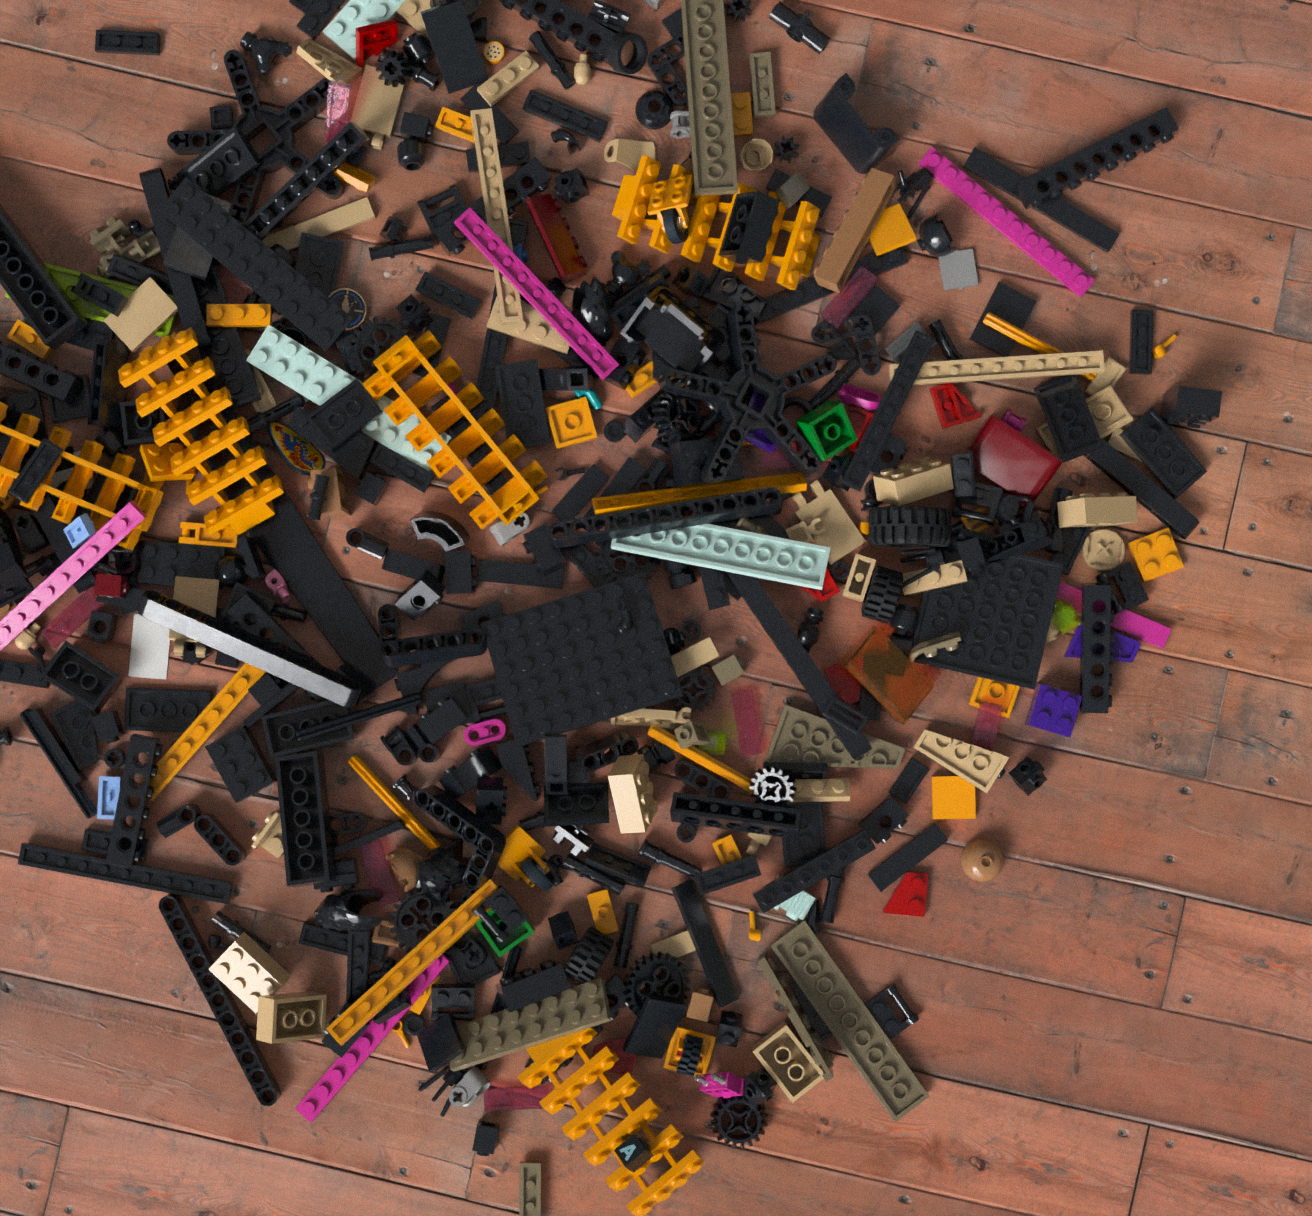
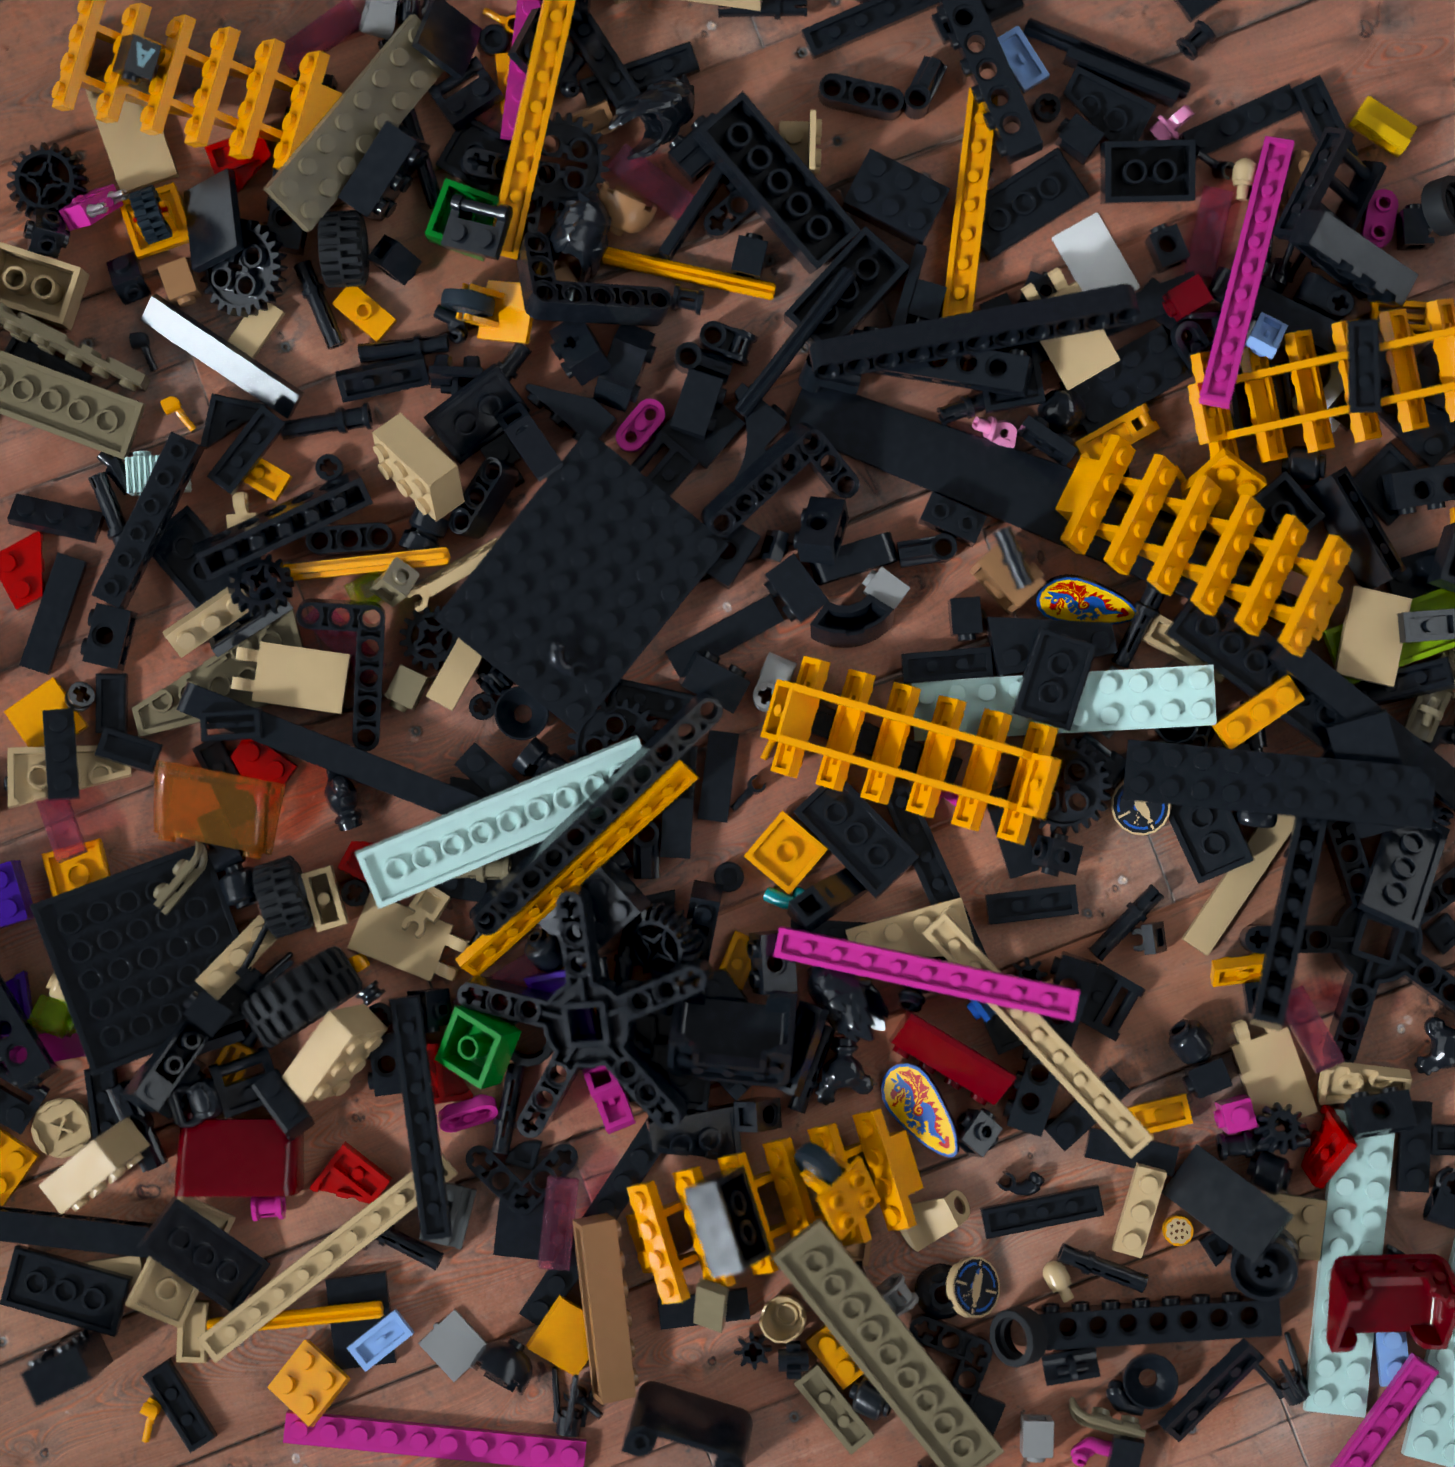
camera: 145 degrees right, 0 degrees up
(54, 697) = (1167, 129): none -> bright pink piece
(321, 29) = (1365, 1124): none -> black brick
(339, 551) = (952, 518): none -> black brick
(351, 788) = (749, 256): none -> black brick
(406, 537) = (885, 587): none -> light grey brick
(414, 95) = (1235, 1114): none -> dark pink brick
(454, 606) = (774, 546): none -> black plate
(473, 257) = (1026, 966): none -> black gear
(594, 221) = (920, 1108): none -> shield
(634, 98) = (973, 1287): none -> tile
(676, 1099) = (134, 156): none -> tan tile
(679, 601) = (506, 720): none -> black piece
(726, 905) = (226, 416): none -> black tile
(738, 75) = (868, 1400): none -> black head
(742, 702) = (364, 660): none -> black beam
(746, 985) = (142, 340): none -> black hand
(751, 459) = (544, 951): none -> black head
(766, 127) = (793, 1360): none -> black gear
(771, 348) = (610, 1098): none -> dark pink brick
(788, 720) = (296, 677): none -> tan tile
(868, 913) = (56, 518): none -> black plate
(916, 744) = (128, 750): none -> black tile
(919, 793) = (88, 696): none -> black bush
(957, 767) = (61, 754): none -> black plate
(998, 300) = (380, 1340): none -> light blue plate
(1056, 304) = (309, 1383): none -> light orange plate

